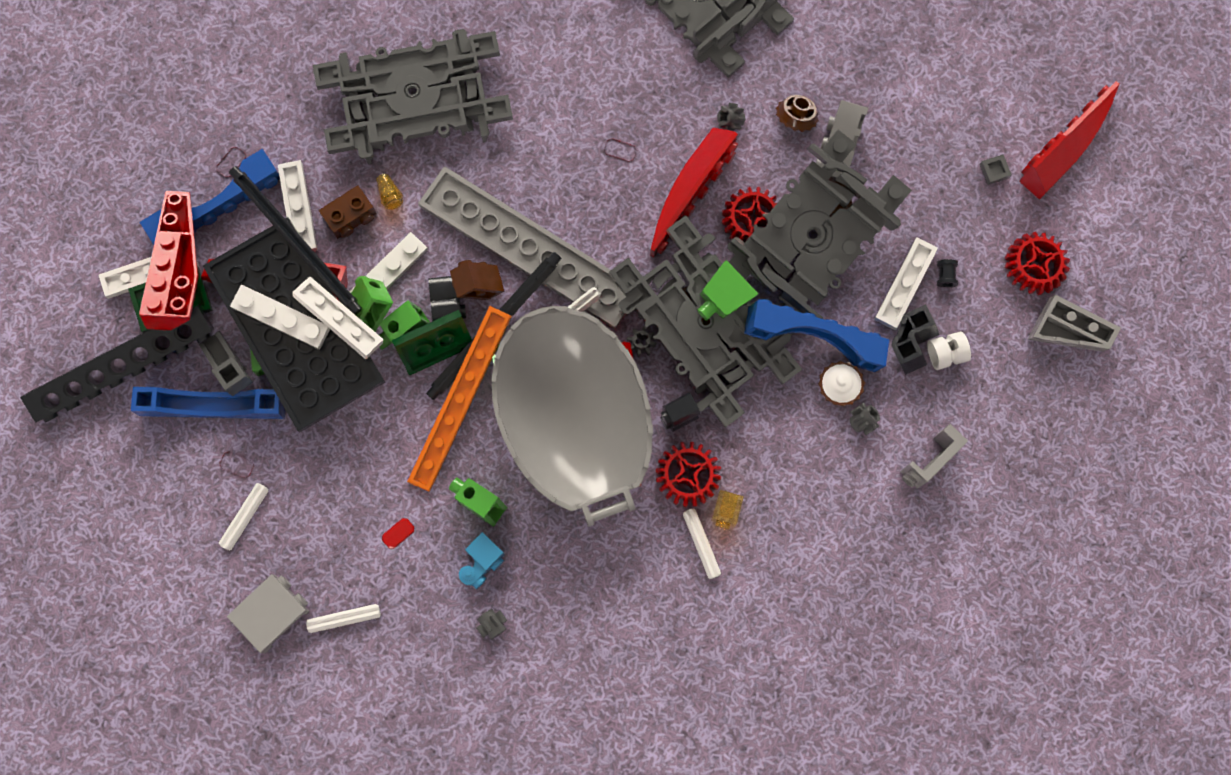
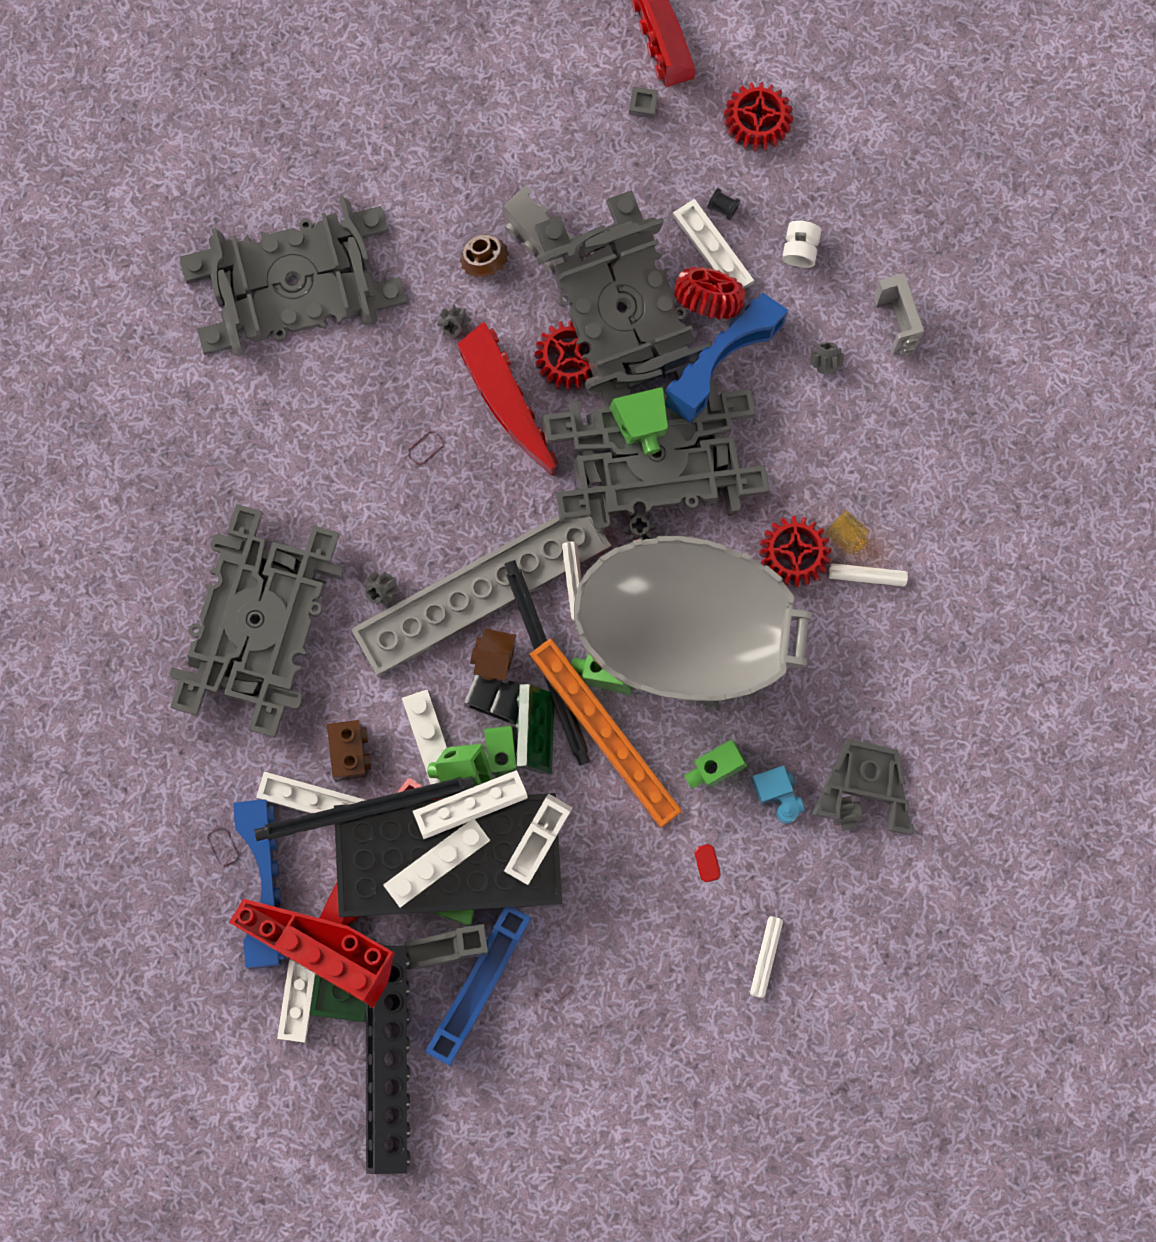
camera: 60 degrees left, 0 degrees up
(243, 516) = (612, 1008): white axle -> none
(268, 612) = (725, 1025): light grey panel -> none
(338, 384) = (538, 839): none -> white slope
(389, 193) = (347, 699): clear yellow cone -> none
(488, 171) = (381, 588): none -> dark grey gear
(533, 625) = (867, 773): none -> dark grey wing
(679, 412) = (733, 525): black brick -> none
(841, 383) = (781, 360): white piece -> none
(864, 296) = (709, 292): none -> red gear
(915, 329) = (764, 261): black brick -> none
(1073, 326) = (837, 119): light grey wedge -> none

